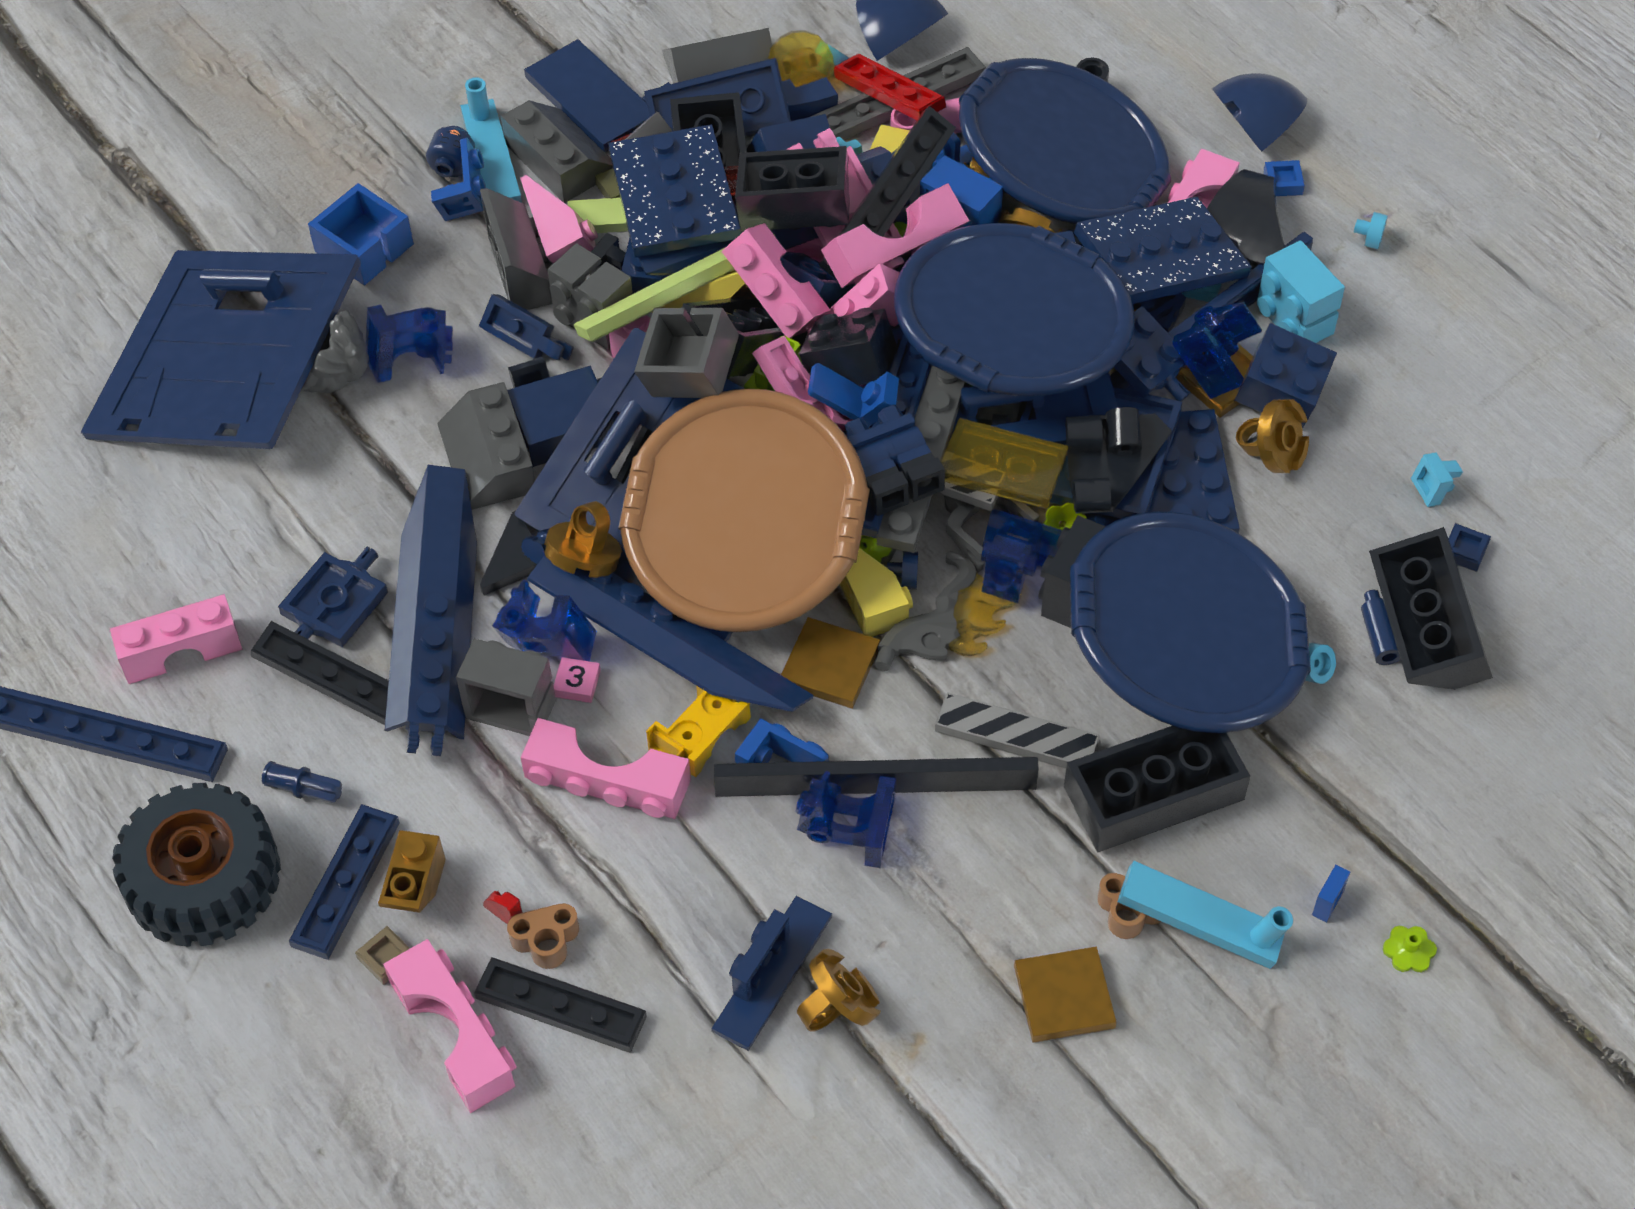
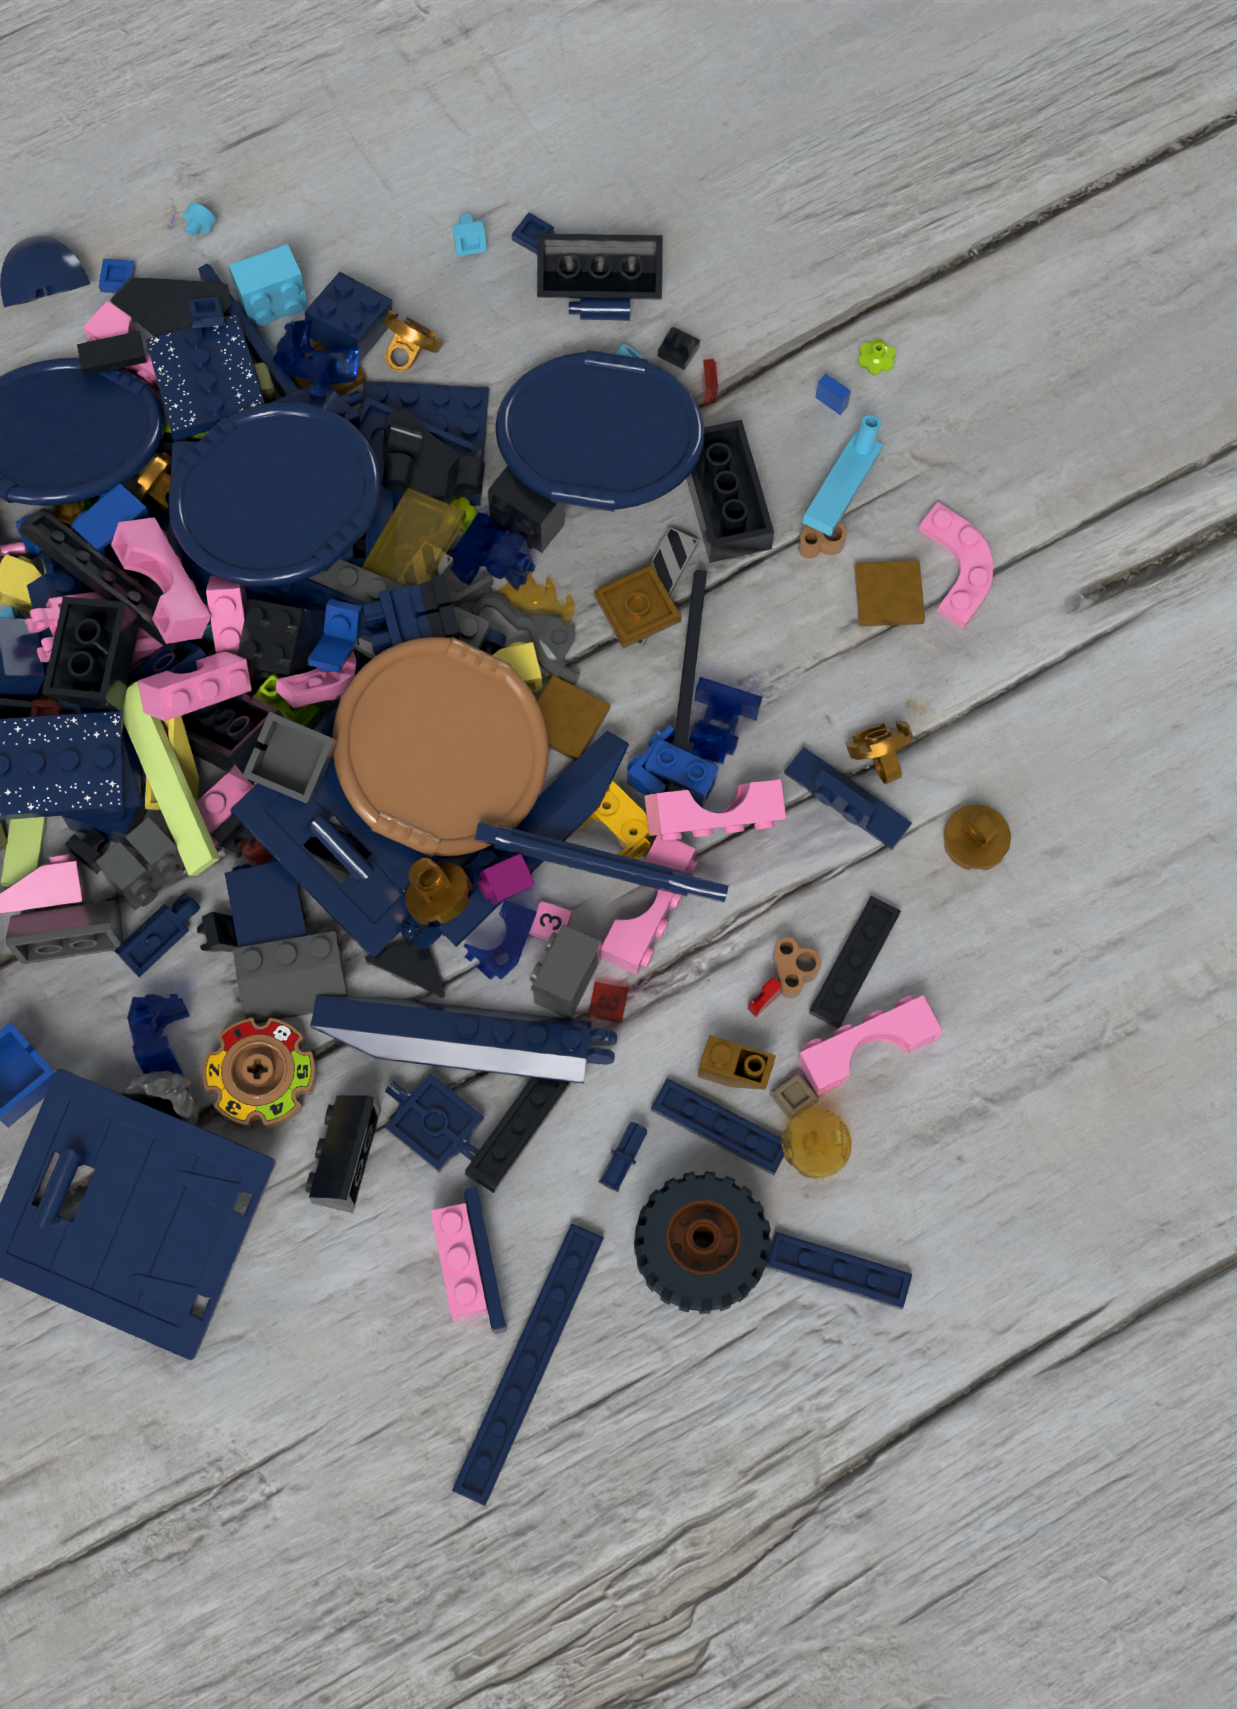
camera: 85 degrees left, 15 degrees up
(174, 1026) = (839, 1270): none -> dark blue tile
(177, 664) = (484, 1261): none -> dark blue tile
(291, 521) = (343, 1152): none -> black slope
(324, 979) = (816, 1143): none -> clear yellow tile
(379, 437) = (242, 1052): none -> medium nougat piece
(486, 749) = (608, 1002): none -> clear red tile
(601, 603) = (505, 880): none -> magenta brick
(632, 697) = (600, 862): none -> dark blue piece
(705, 763) = (678, 812): none -> bright pink arch
(741, 1131) = (977, 837): none -> pearl gold tile
(768, 780) = (683, 770): none -> blue bracket
(982, 710) = (637, 606): none -> pearl gold tile
(1126, 1093) = (972, 558): none -> bright pink plate
(1172, 171) = (111, 353): none -> black tile
(1172, 307) = (264, 382): none -> olive tile
(1241, 236) = (206, 312): none -> dark blue tile
(1310, 752) = (709, 381): none -> clear red tile
(1353, 717) = (678, 348): none -> black tile

